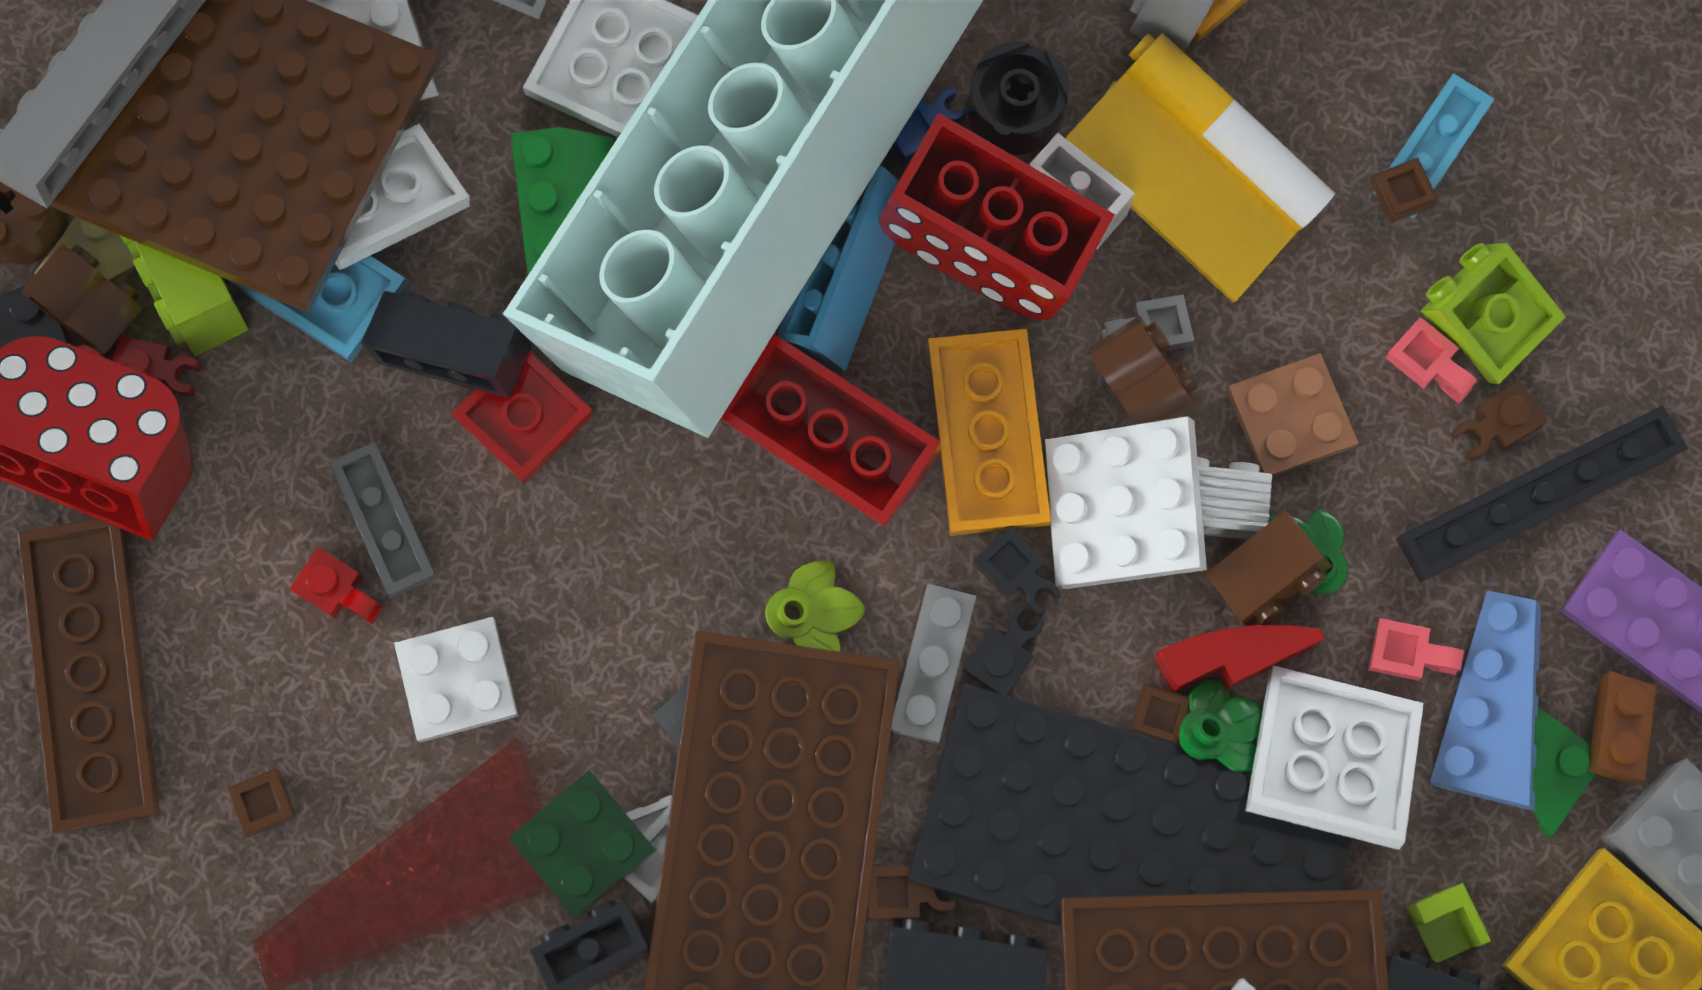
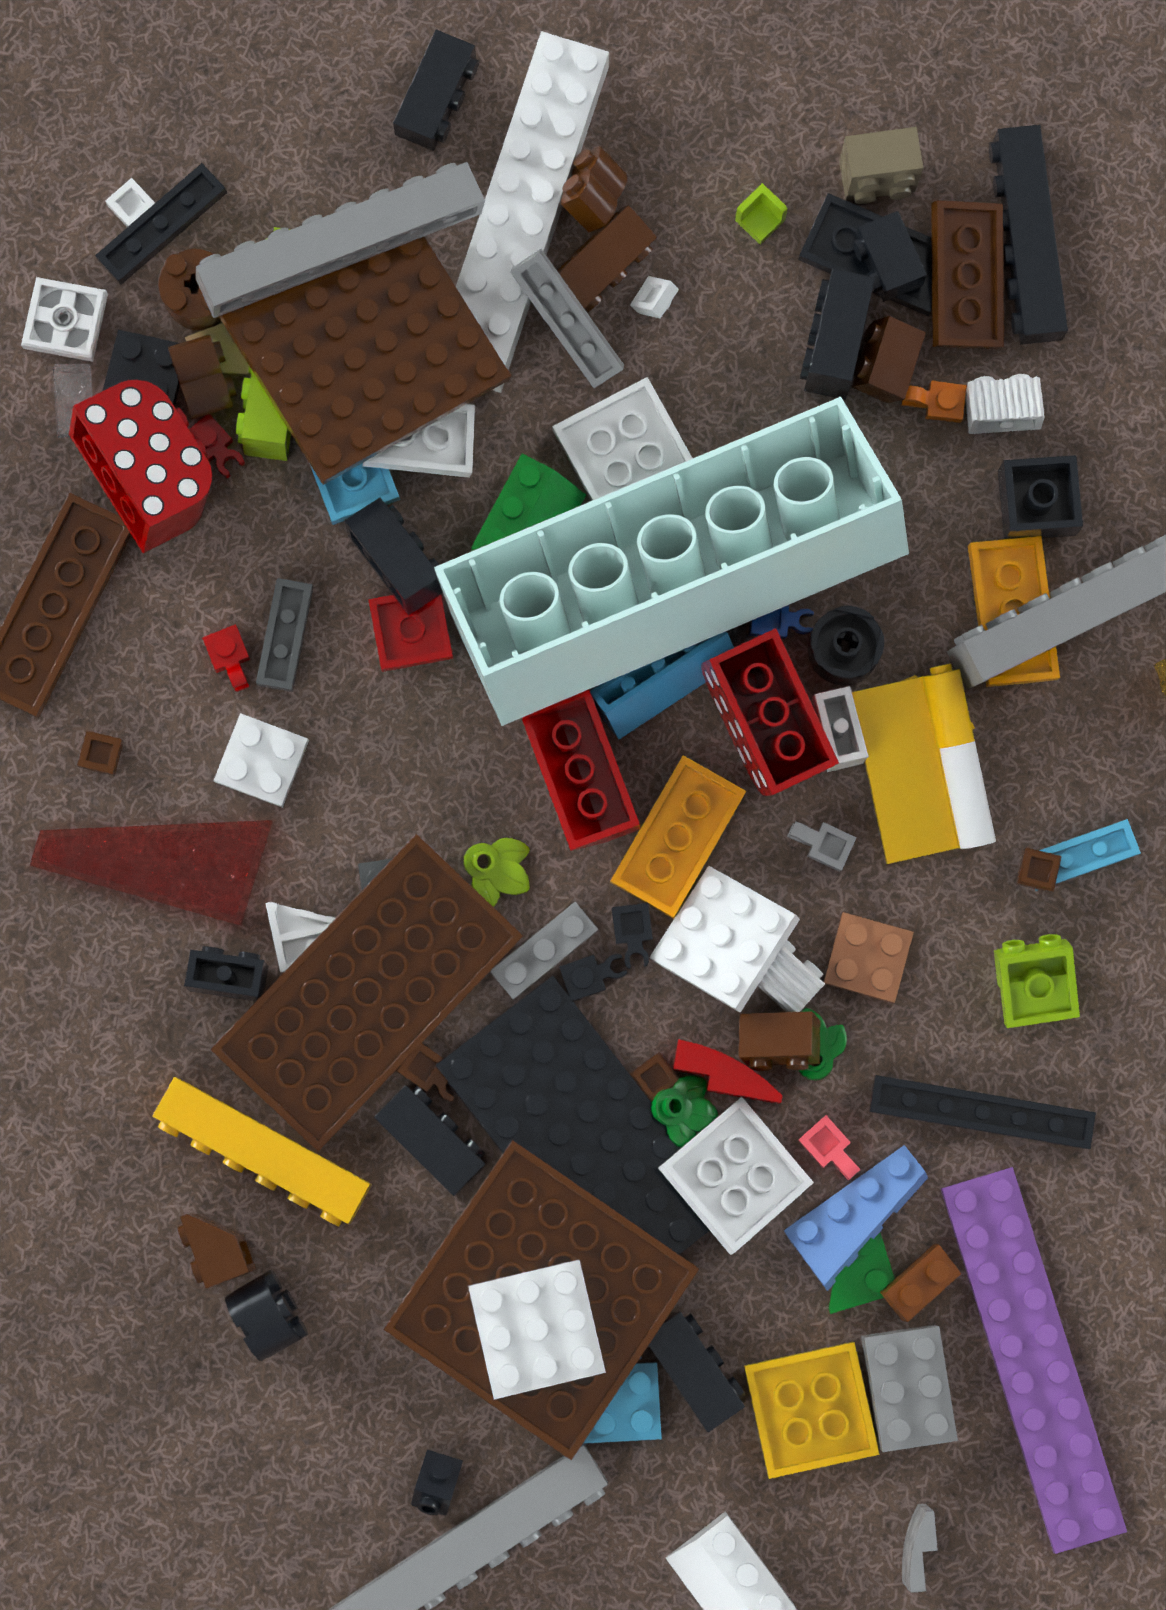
camera: 35 degrees right, 5 degrees up
(582, 844) = (264, 910): dark green plate -> none
(1142, 373) = (793, 869): reddish brown brick -> none
(1427, 356) = (976, 979): coral plate -> none
(1448, 923) = (729, 1318): lime panel -> none
(1504, 418) = (997, 1051): reddish brown plate -> none

